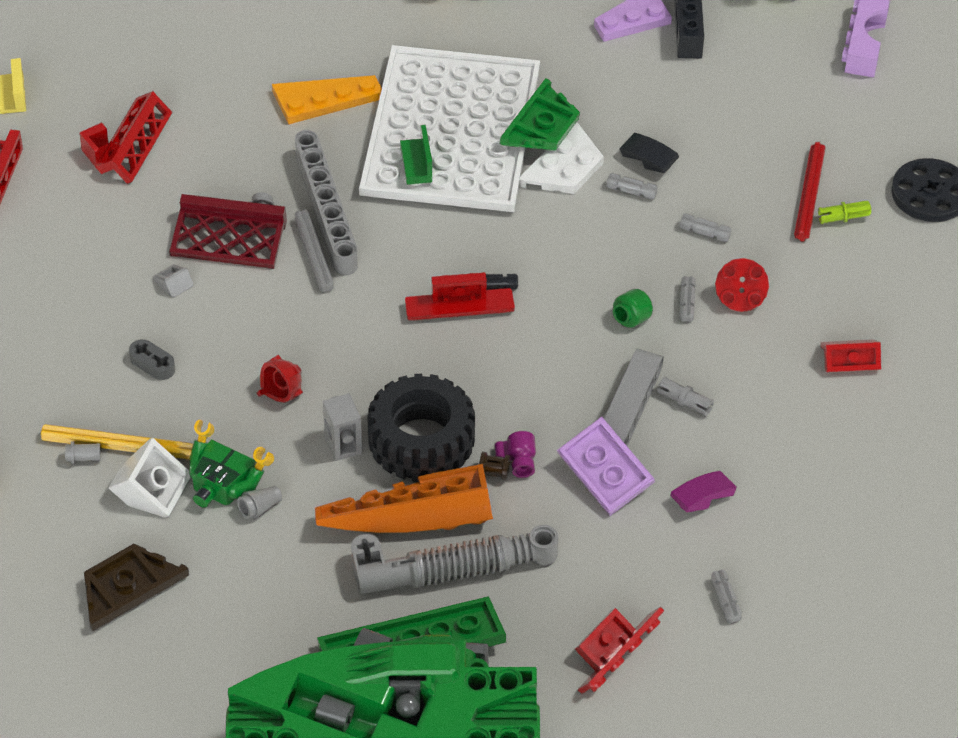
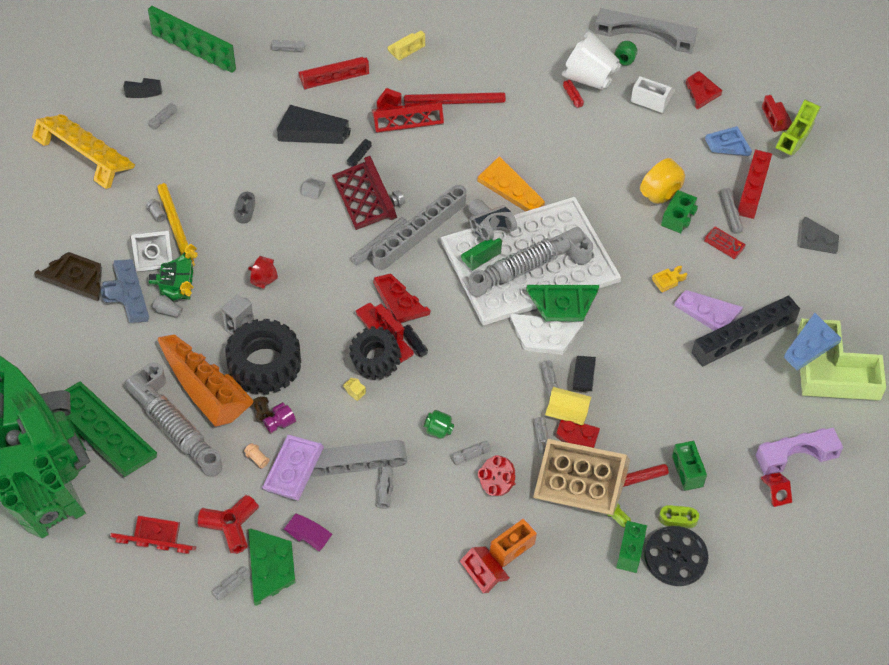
camera: 60 degrees right, 5 degrees up
(74, 236) = (312, 127): none -> black slope
(143, 82) = (456, 98): none -> red axle
(154, 210) = (360, 151): none -> black axle
(199, 535) = (126, 290): none -> sand blue plate
(376, 127) = (488, 219): none -> light grey connector
(418, 270) = (398, 300): none -> red wing
(463, 114) = (545, 251): none -> light grey piece
(497, 299) = (368, 341): none -> black tyre
(524, 364) = (355, 388): none -> light yellow piece
(558, 499) = (252, 451): none -> light nougat pin
(568, 25) = (667, 280): none -> yellow plate
(641, 561) = (233, 532): none -> red piece
(684, 185) = (568, 406): none -> light yellow panel
(721, 545) = (270, 564): none -> green wing
(728, 198) = (577, 434): none -> red wing
(792, 212) = (581, 476): none -> tan slope
(833, 121) = (689, 465): none -> green brick
(840, 309) = (513, 542): none -> orange brick
(879, 163) = (679, 516): none -> lime beam
(897, 65) = (778, 482): none -> red bracket
(903, 216) = (631, 546): none -> green brick

